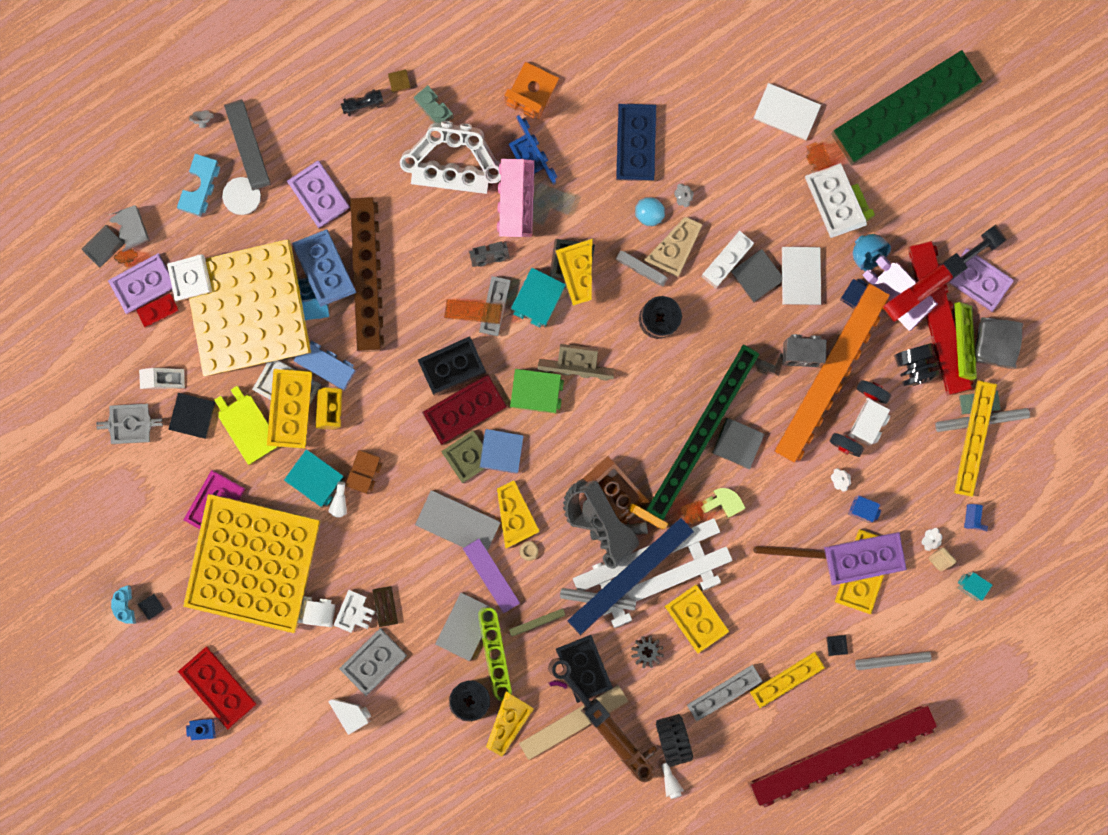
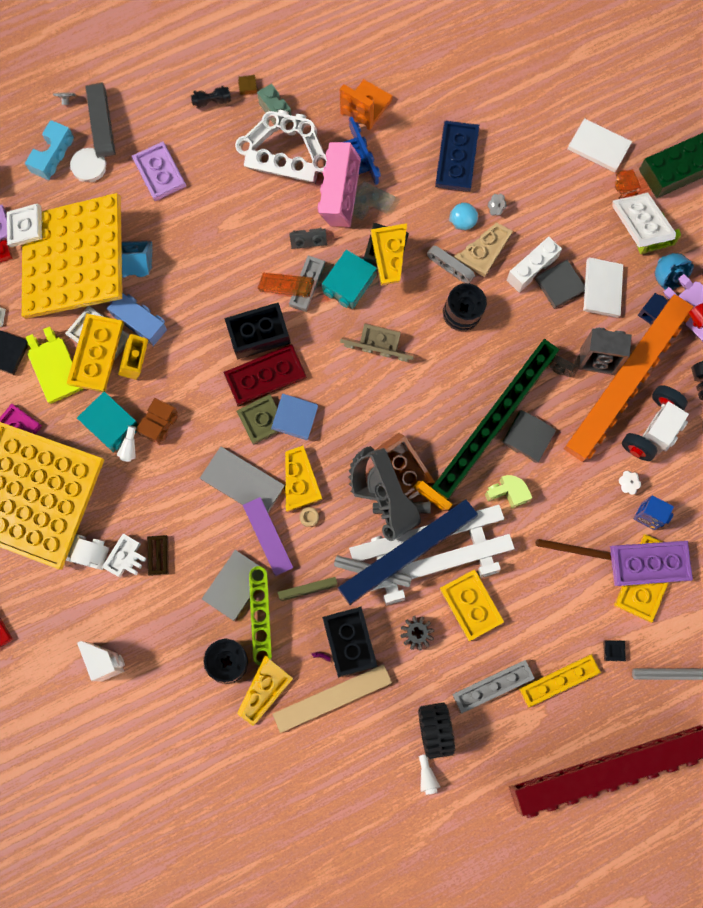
camera: 10 degrees right, 10 degrees down
(323, 268) = (150, 229): medium blue tile -> none
(358, 207) = (193, 183): reddish brown brick -> none
(373, 662) = (136, 610): light grey tile -> none
(536, 391) = (336, 364): bright green brick -> none
(601, 720) = (362, 700): reddish brown piece -> none
(692, 513) = (477, 496): clear orange brick -> none

